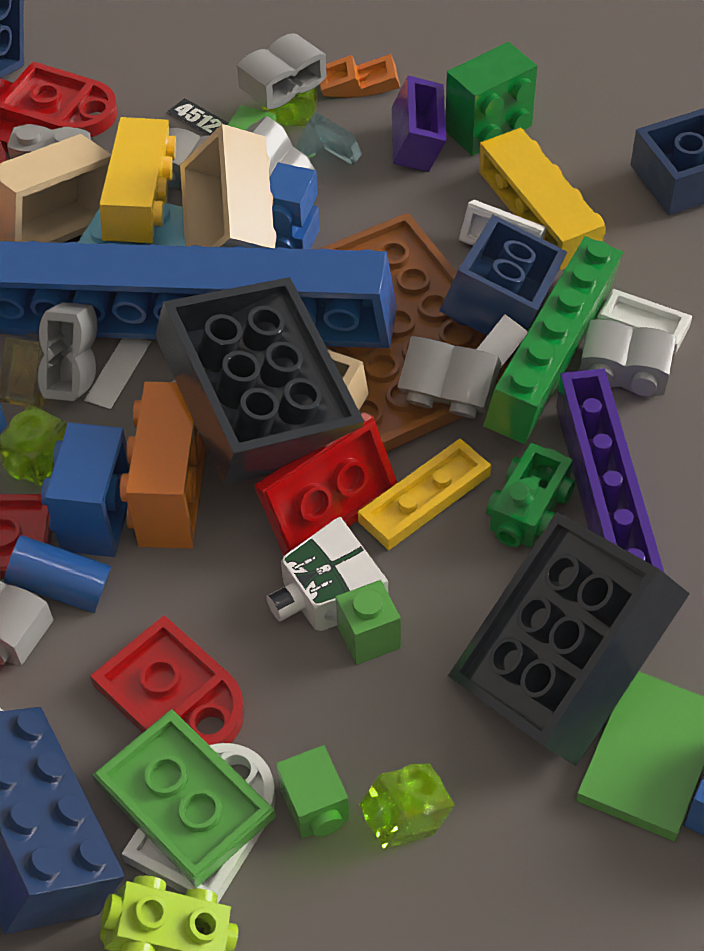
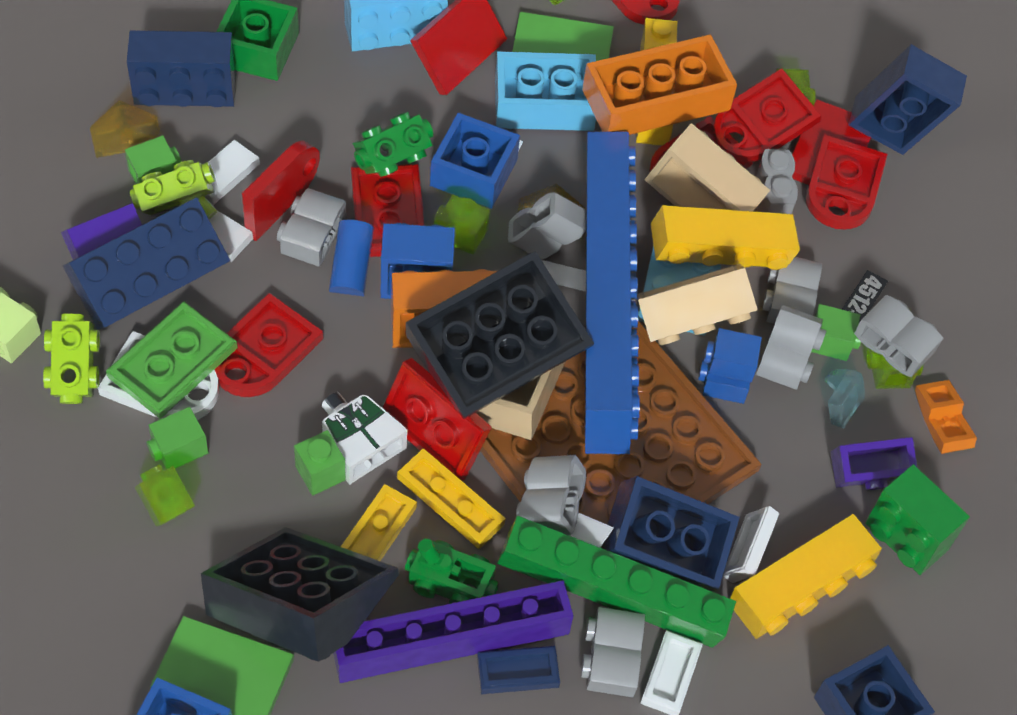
camera: 75 degrees right, 5 degrees up
(458, 568) = (380, 523): none -> yellow plate
(647, 450) = (518, 670): none -> dark blue tile

